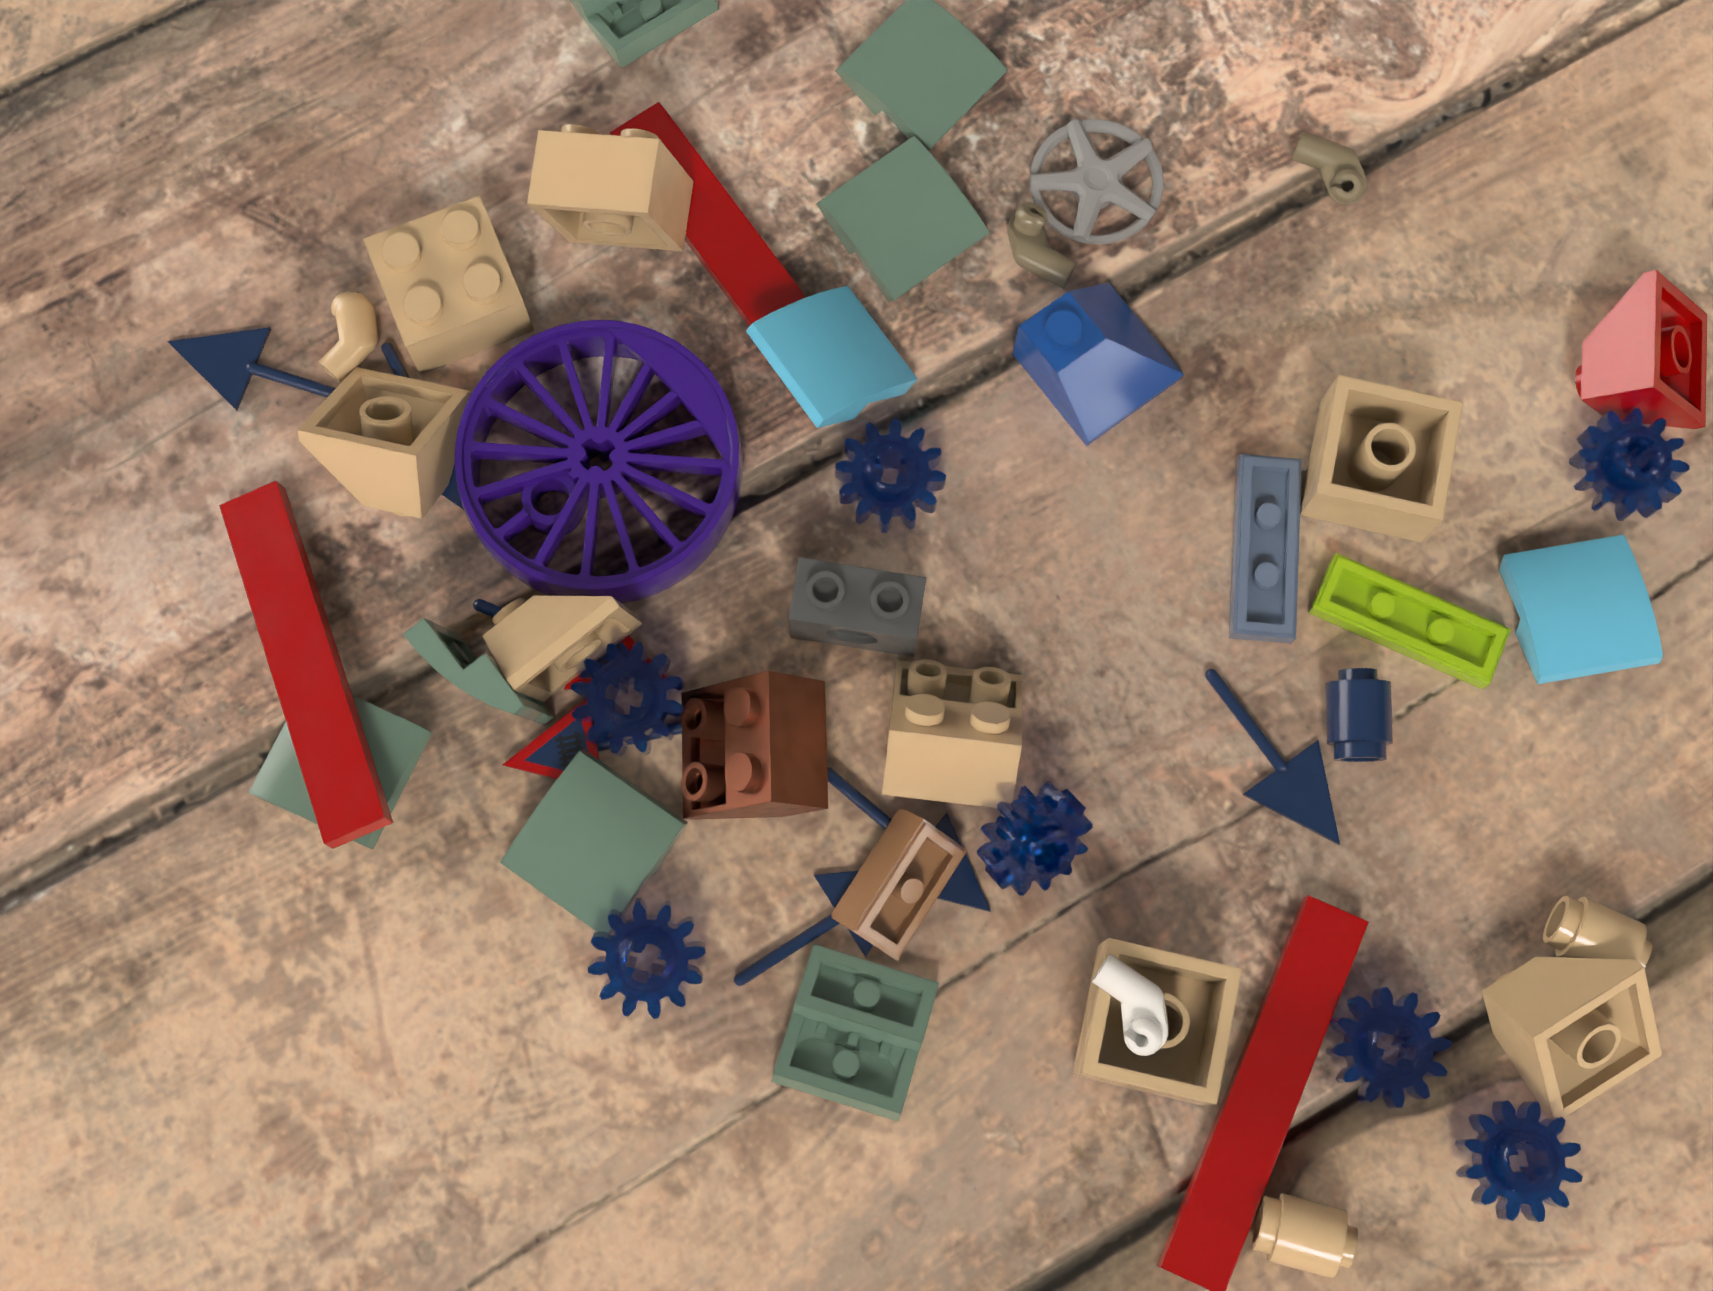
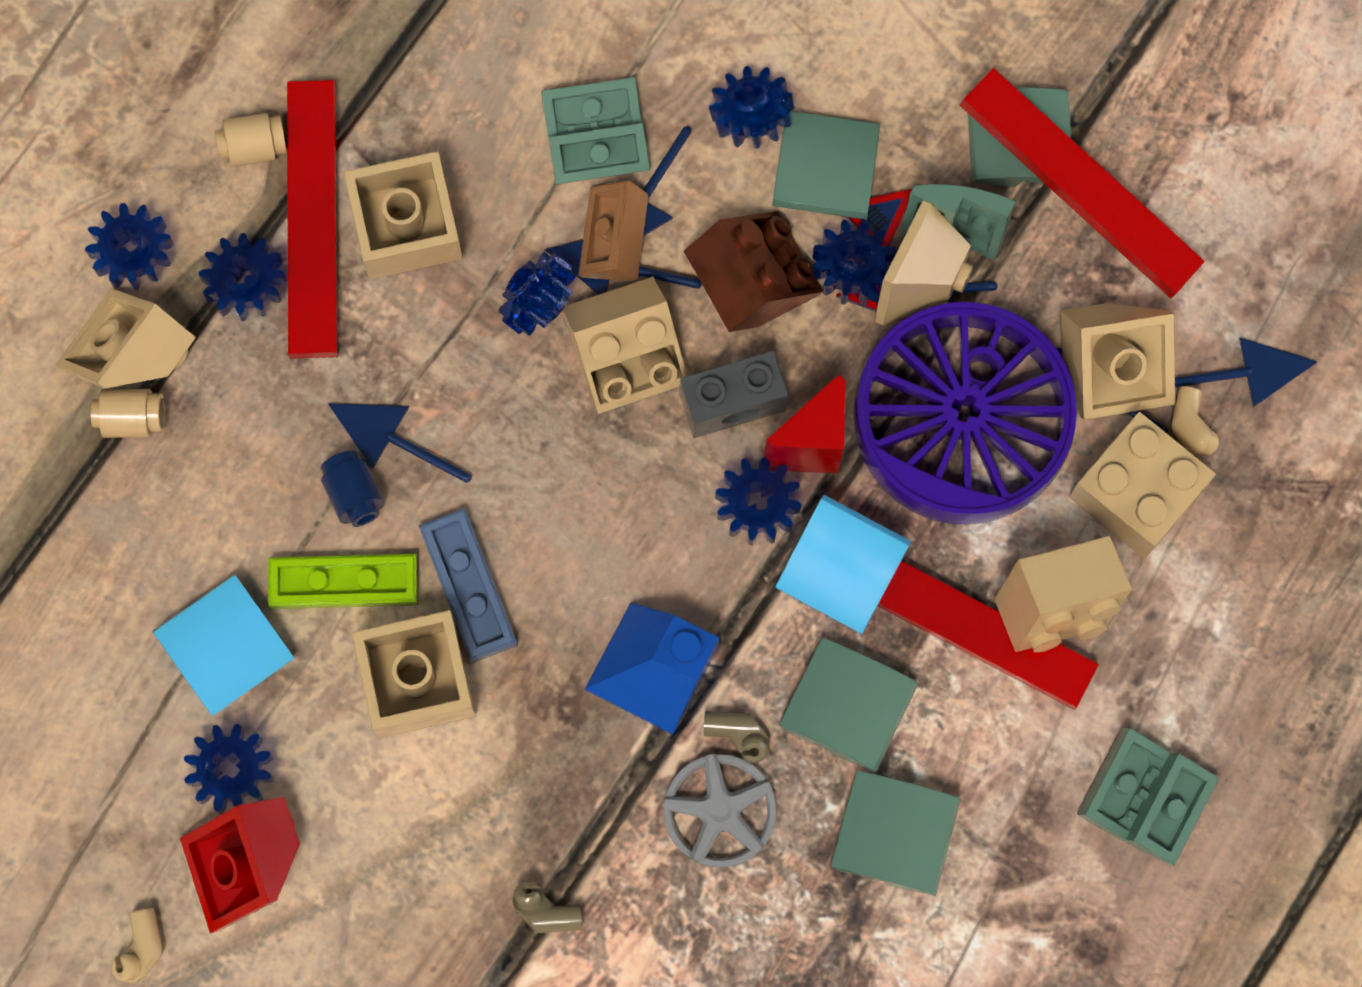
camera: 155 degrees right, 0 degrees up
(792, 504) = (813, 435): none -> red slope
(1141, 1005) = (418, 202): white arm -> none

